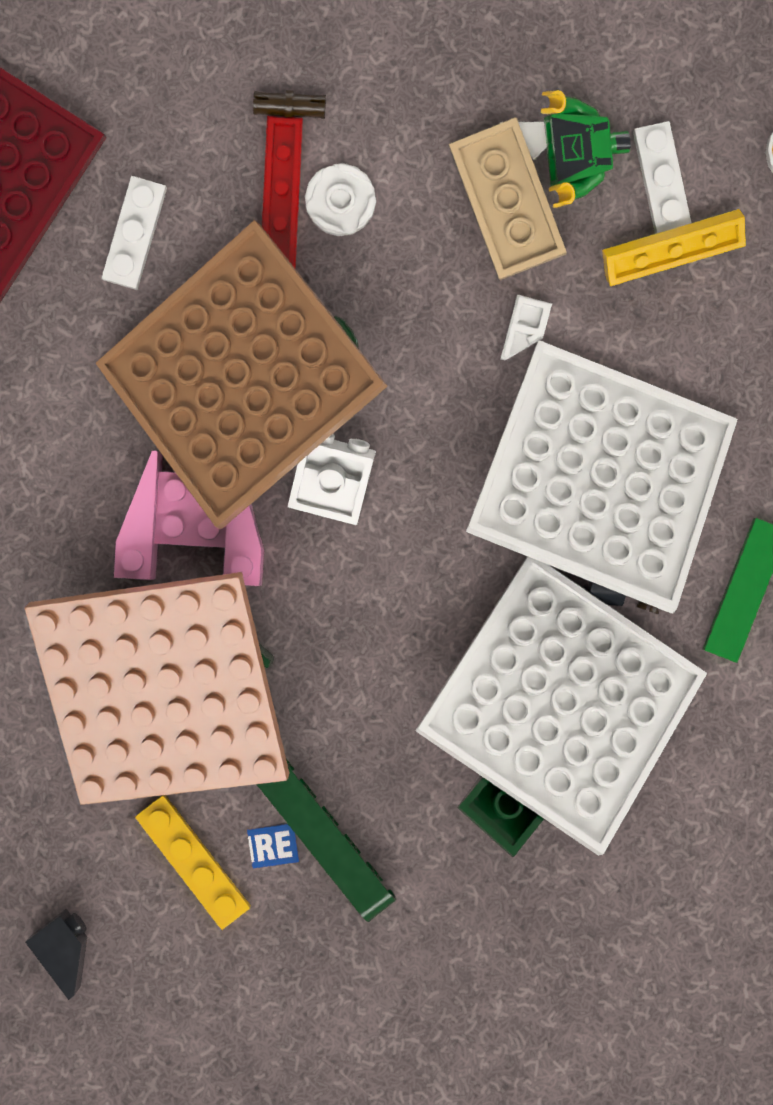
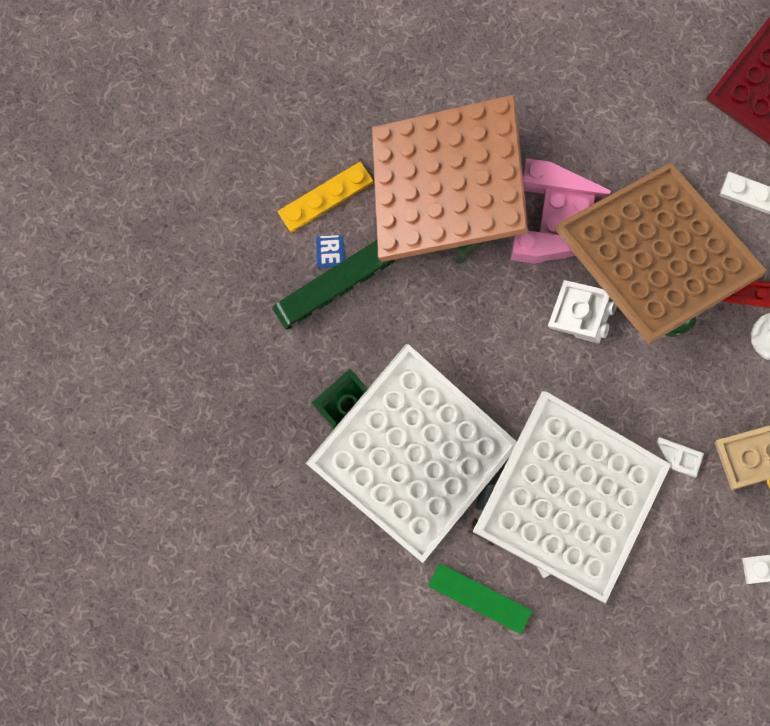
camera: 100 degrees right, 10 degrees down
(61, 950) = (276, 106): black slope -> none
(674, 247) = (733, 569): yellow plate -> none

